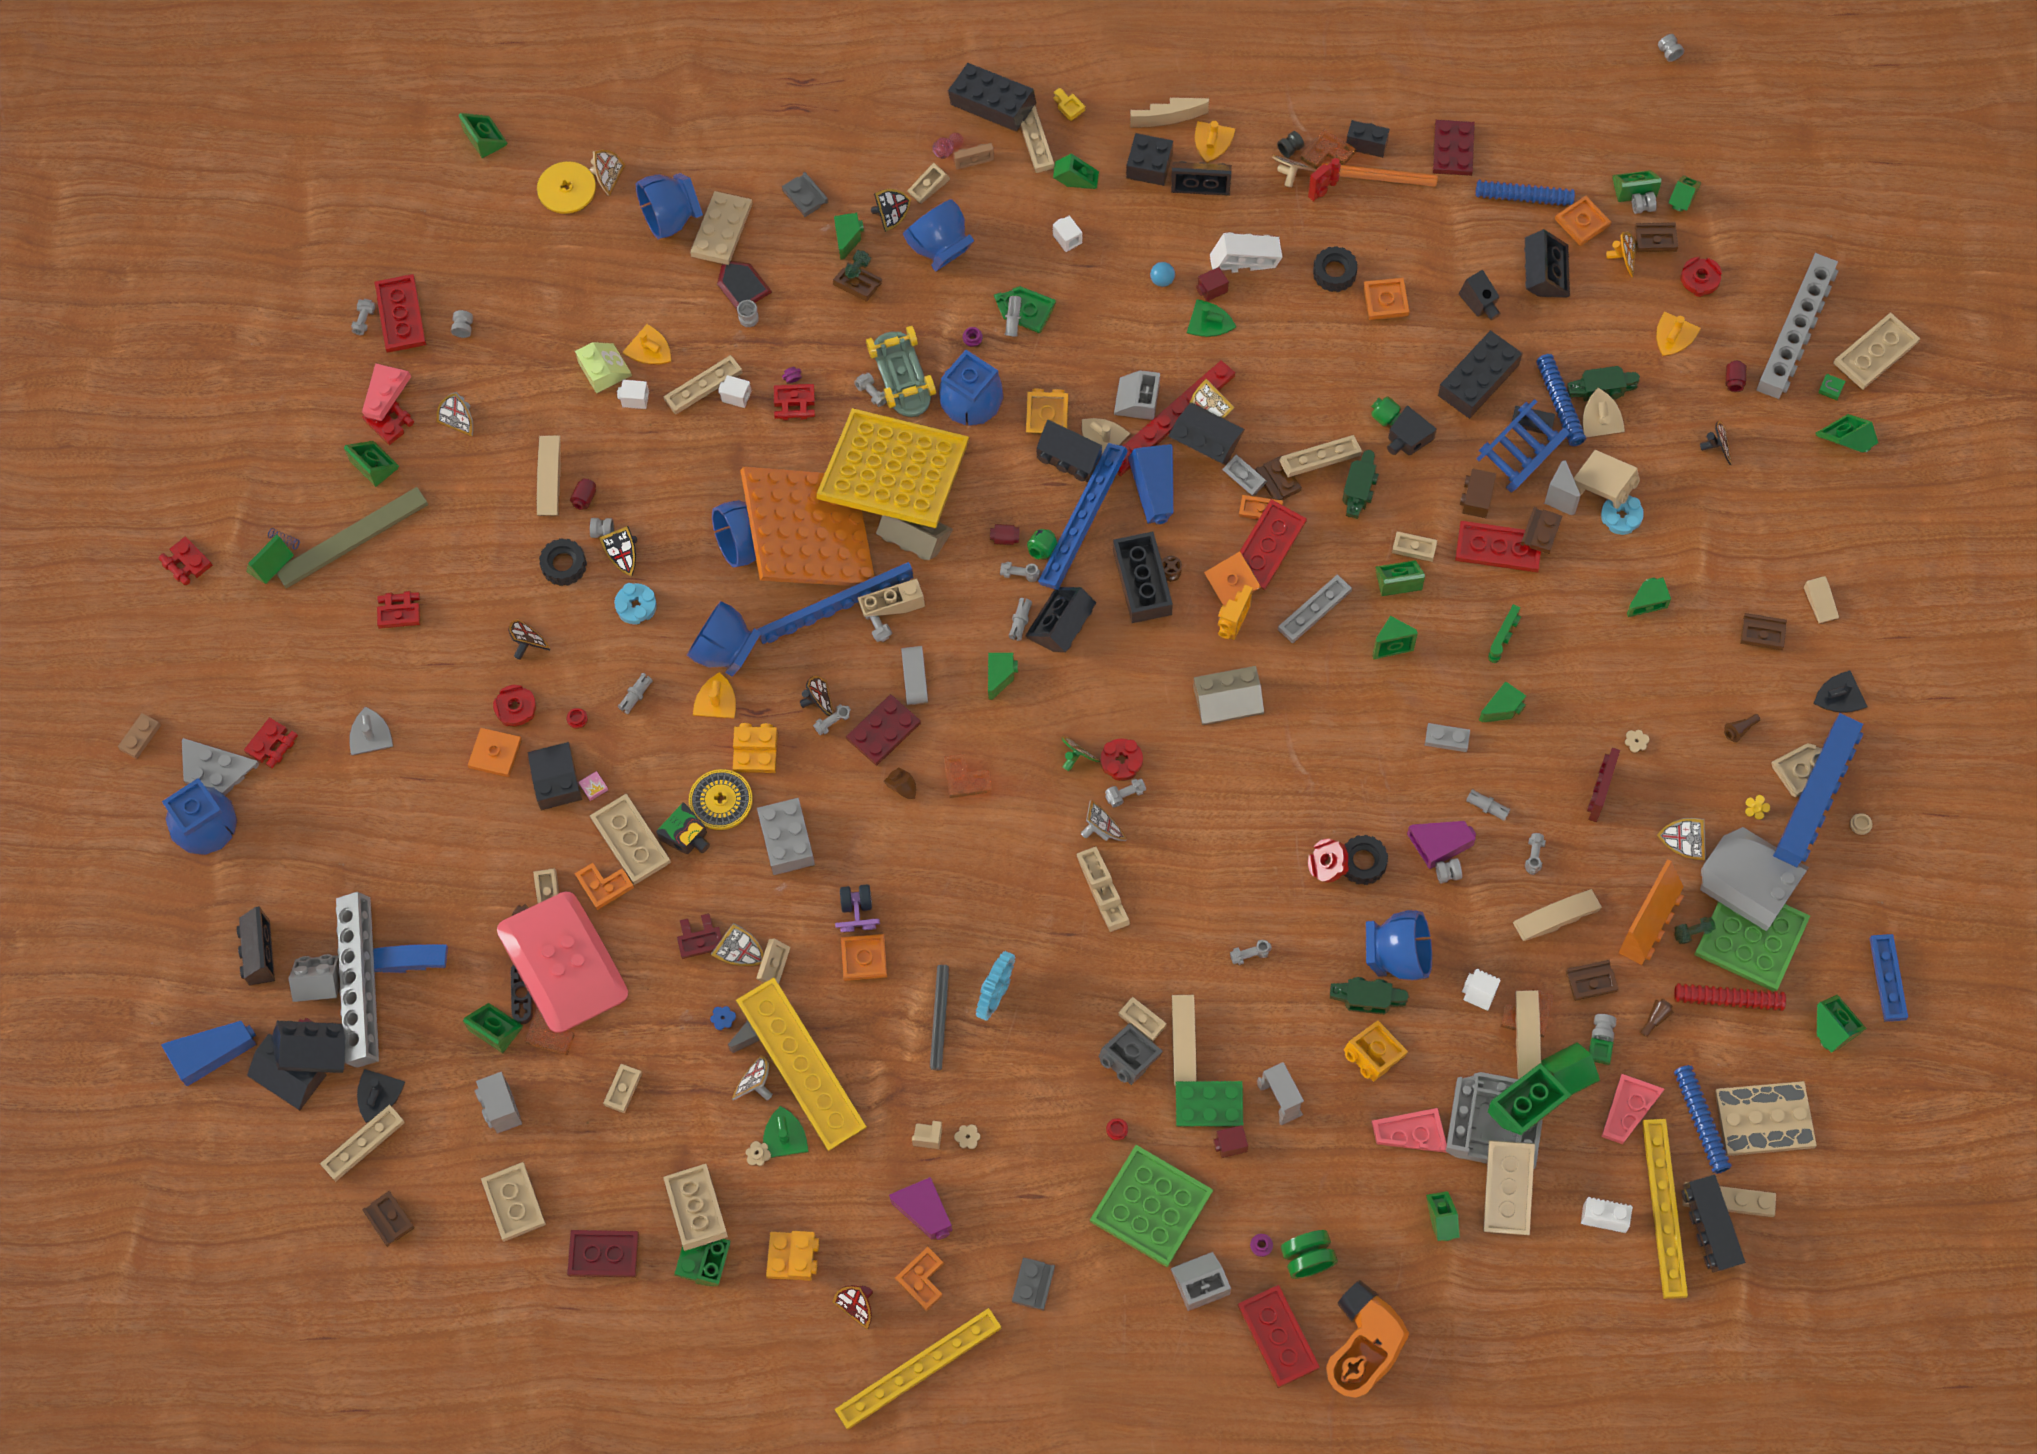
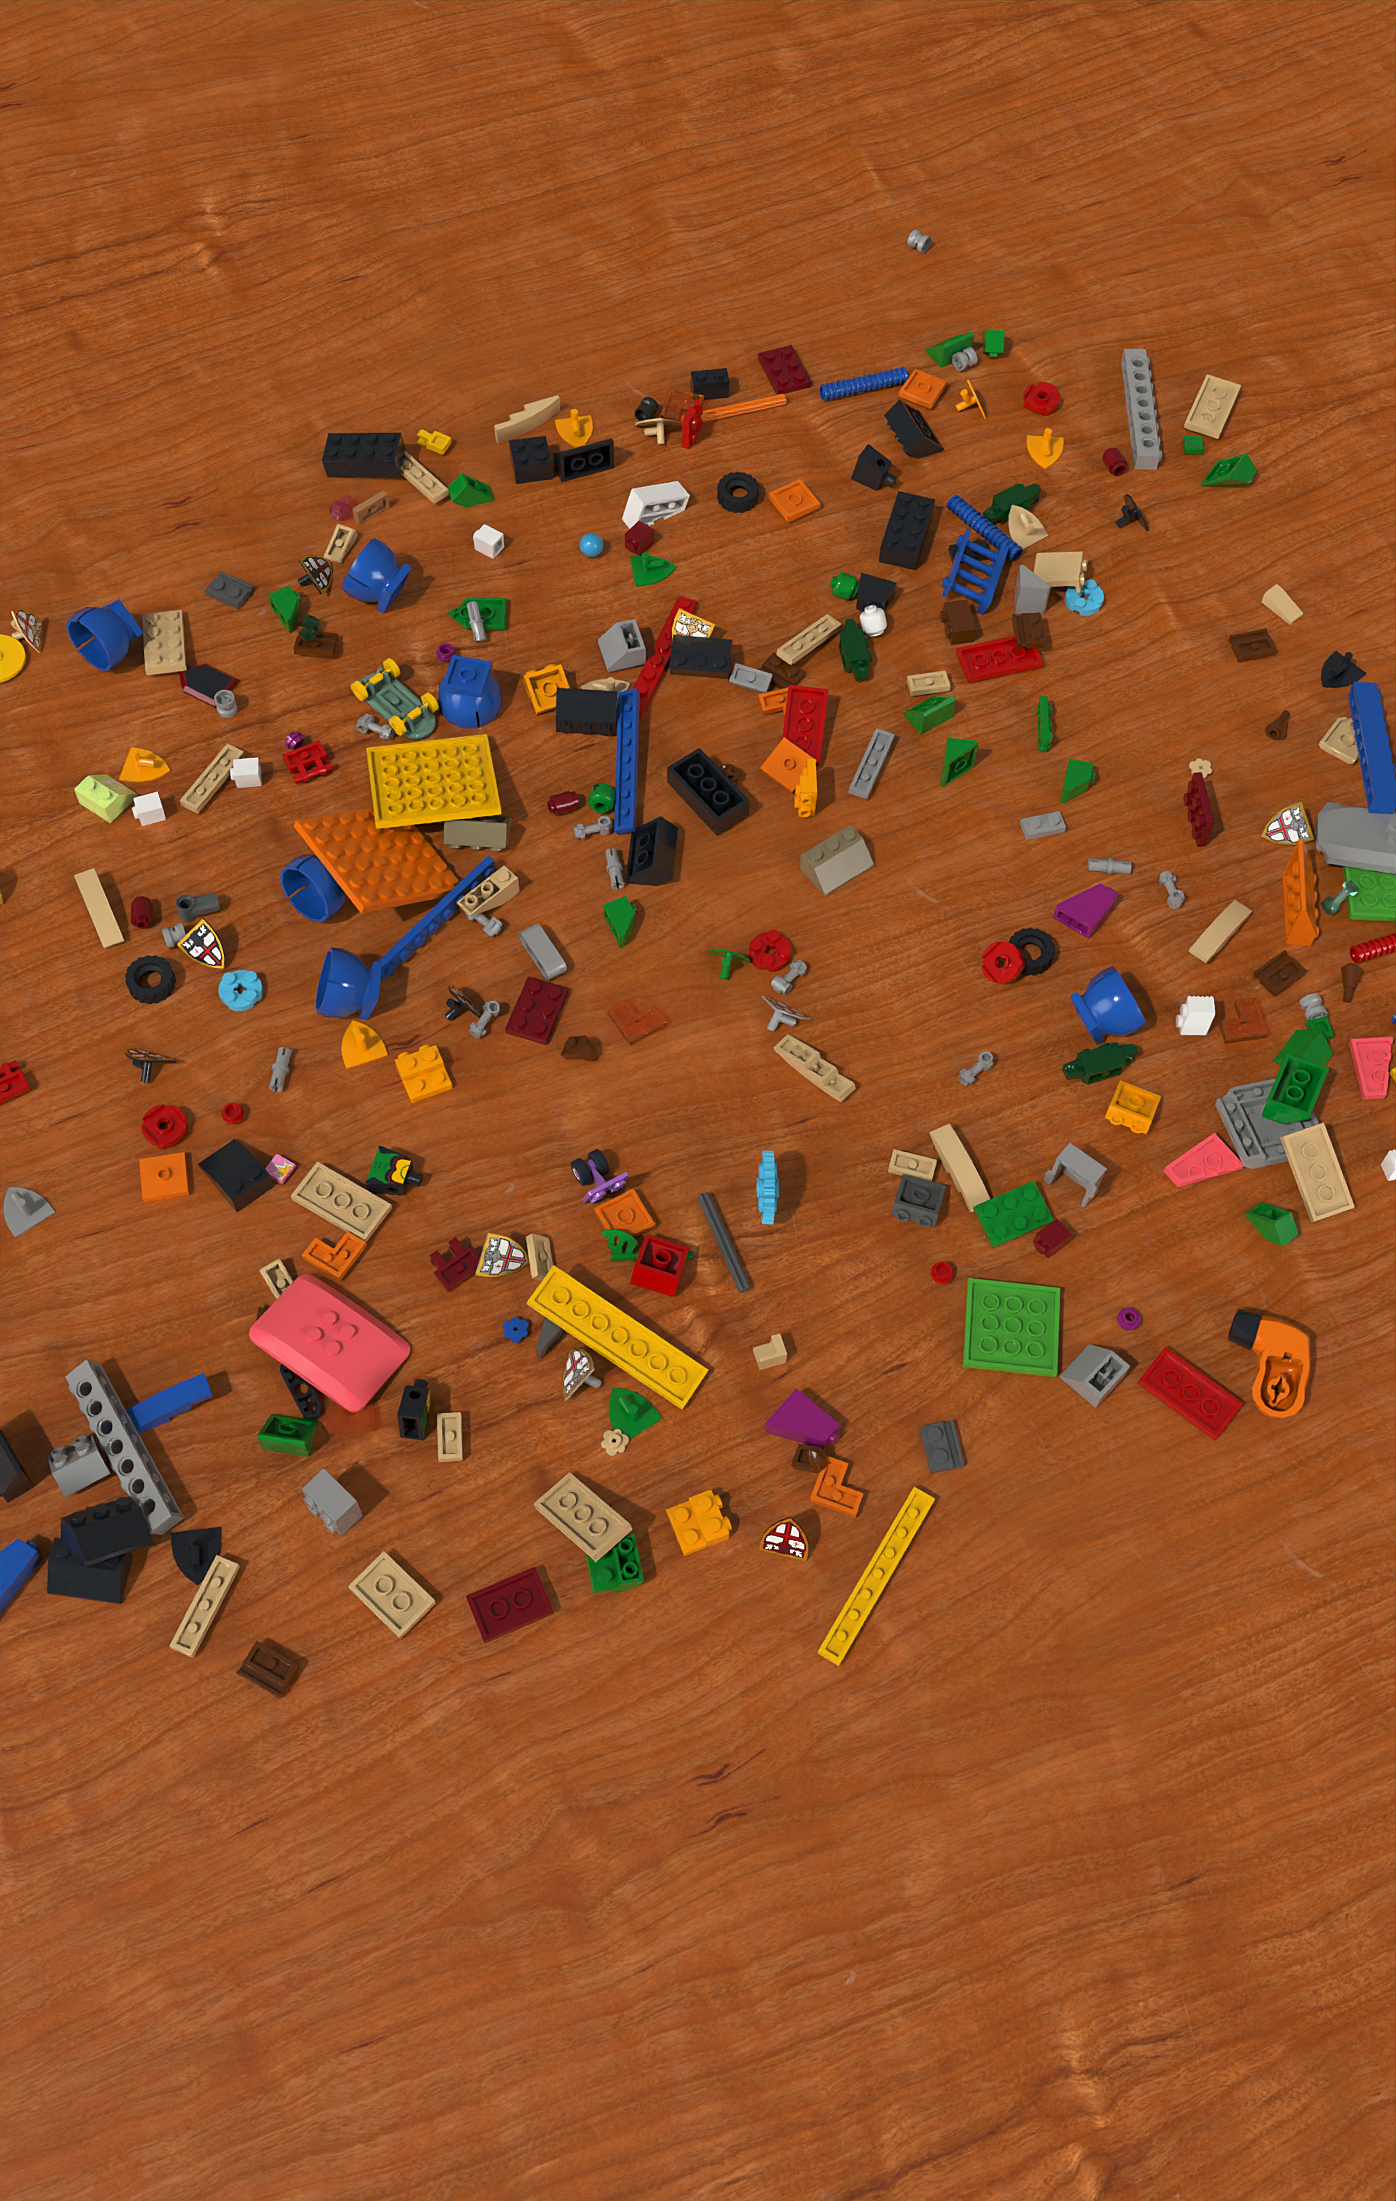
camera: 30 degrees left, 5 degrees down
(603, 1052) = (414, 1410): none -> black torso
(635, 506) = (190, 907): none -> dark grey piece
(732, 810) = (421, 1118): piece -> none
(786, 836) = (494, 1138): light grey brick -> none
(841, 988) = (628, 1255): none -> green piece
(870, 1014) = (659, 1265): none -> red slope
(912, 1243) = (809, 1458): none -> reddish brown plate
(970, 1131) = (808, 1333): tan plant -> none
(1154, 480) = (675, 710): blue slope -> none
(1309, 1254) = (1179, 1305): green wheel -> none
(1393, 460) = (873, 620): none -> white head
(1448, 870) = (1105, 933): light grey wheel -> none
(1527, 1031) = (1256, 1038): tan slope -> none
(1650, 597) = (1147, 651): green slope -> none
(1656, 237) = (989, 381): reddish brown plate -> none
(1757, 806) = (1329, 782): yellow plant -> none

